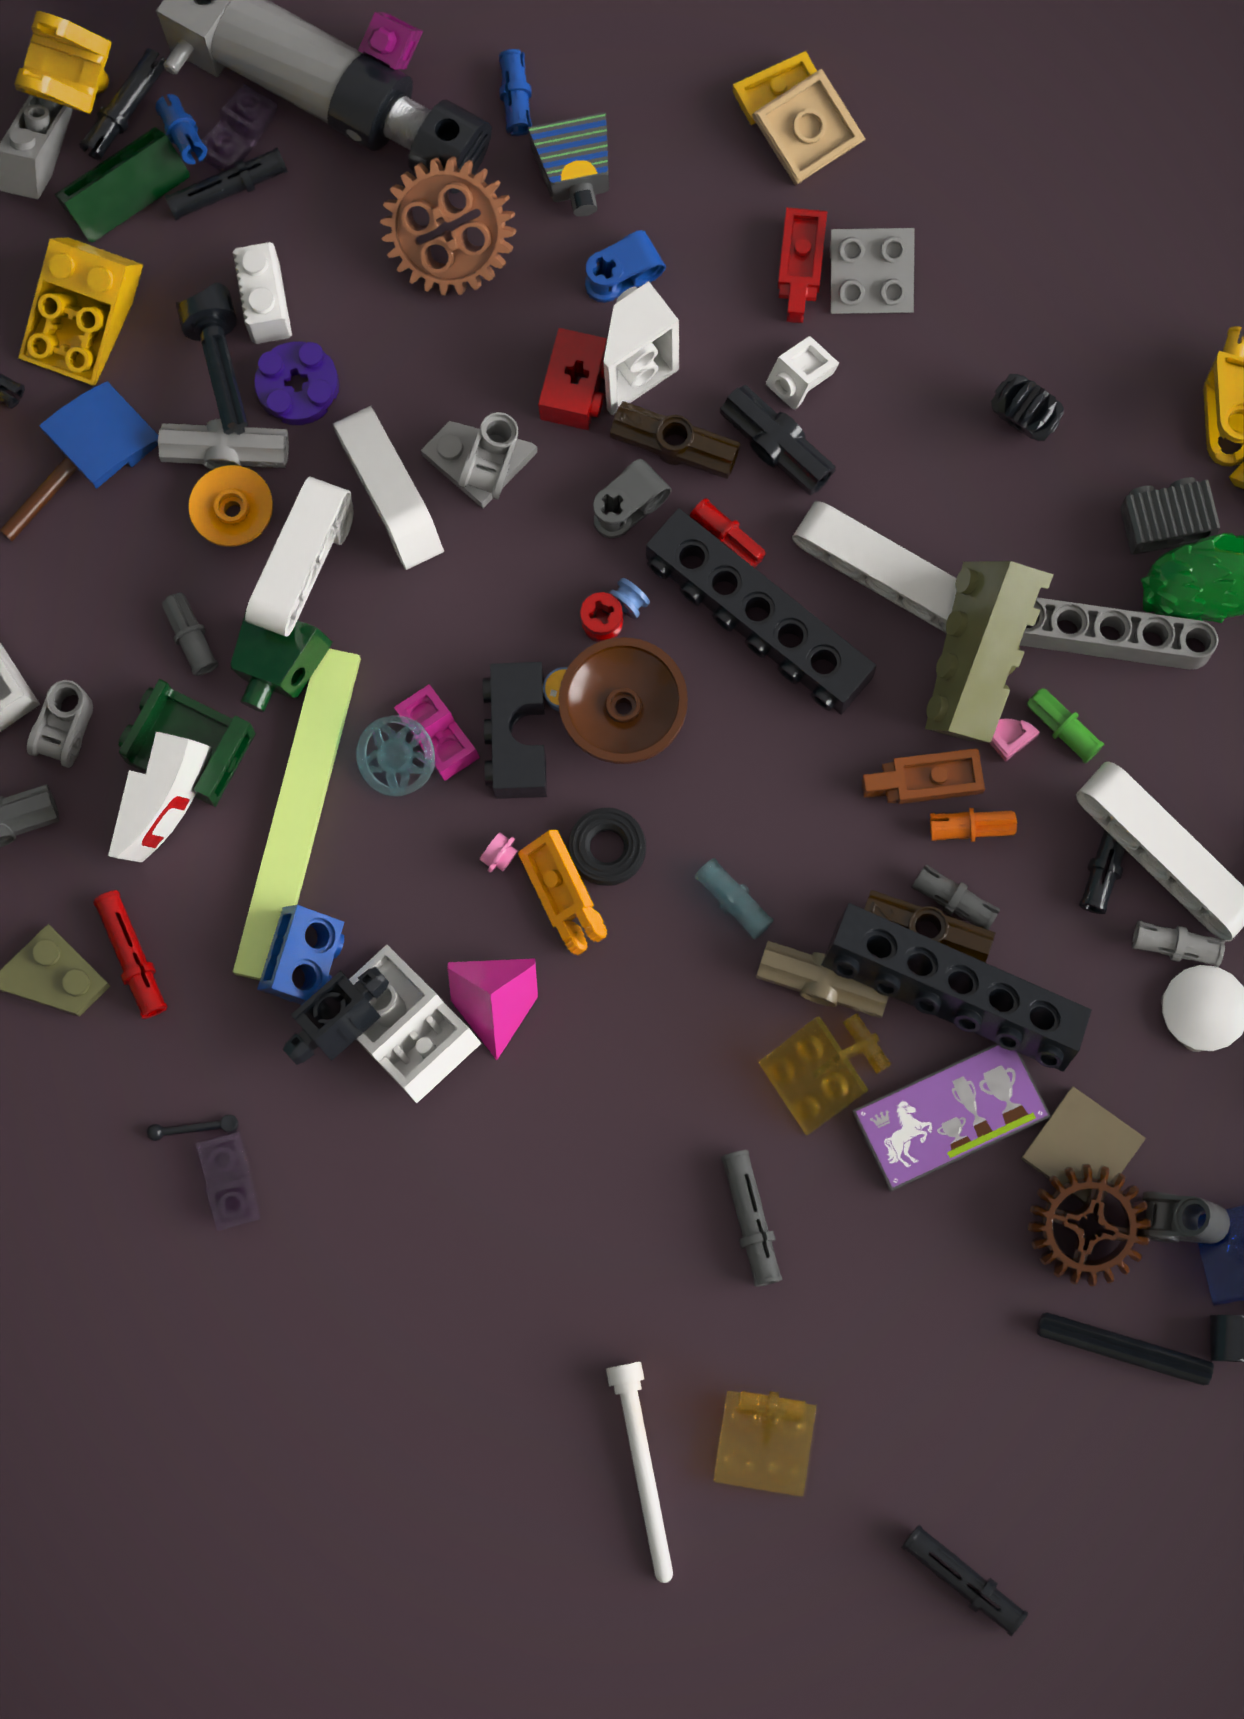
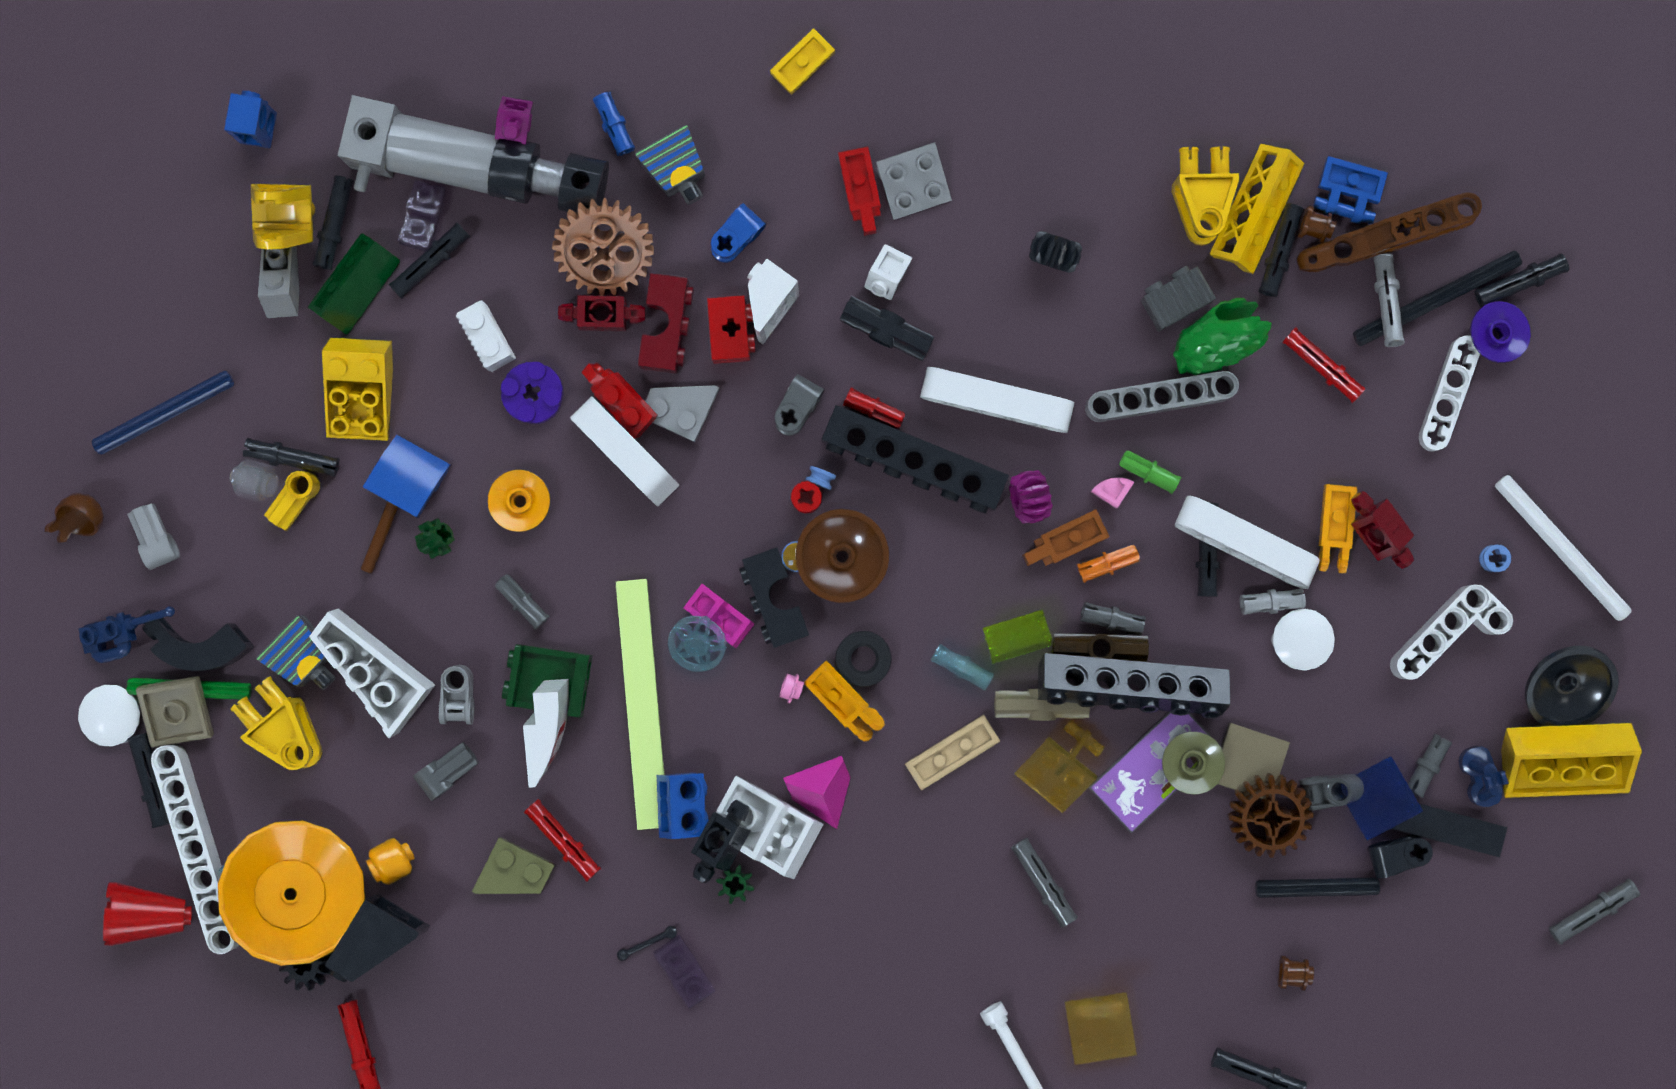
camera: 20 degrees left, 10 degrees up
(106, 518) = (434, 538): none -> dark green gear
(181, 129) = (382, 230): blue pin -> none
(208, 319) = (454, 368): black piece -> none
(216, 449) = (497, 457): light grey piece -> none
(276, 661) = (589, 600): dark green torso -> none
(316, 521) = (583, 529): white beam -> none
(336, 1096) = (742, 880): none -> dark green gear
(404, 421) = (620, 399): none -> red hinge
(407, 295) = (569, 313): none -> dark red piece
(482, 378) = (664, 350): none -> dark red arch
(488, 460) = (692, 416): light grey piece -> none
(649, 430) = (836, 352): dark brown piece -> none
(684, 1006) = (952, 752): none -> tan tile
(808, 127) = (834, 85): tan tile -> none
(819, 880) = (1017, 636): none -> clear neon green hinge
(895, 703) = (1030, 496): none -> magenta gear
(982, 646) = (1079, 440): olive wedge -> none
(1020, 1101) = (1209, 765): none -> olive dish
(1058, 1455) = (1295, 973): none -> reddish brown brick

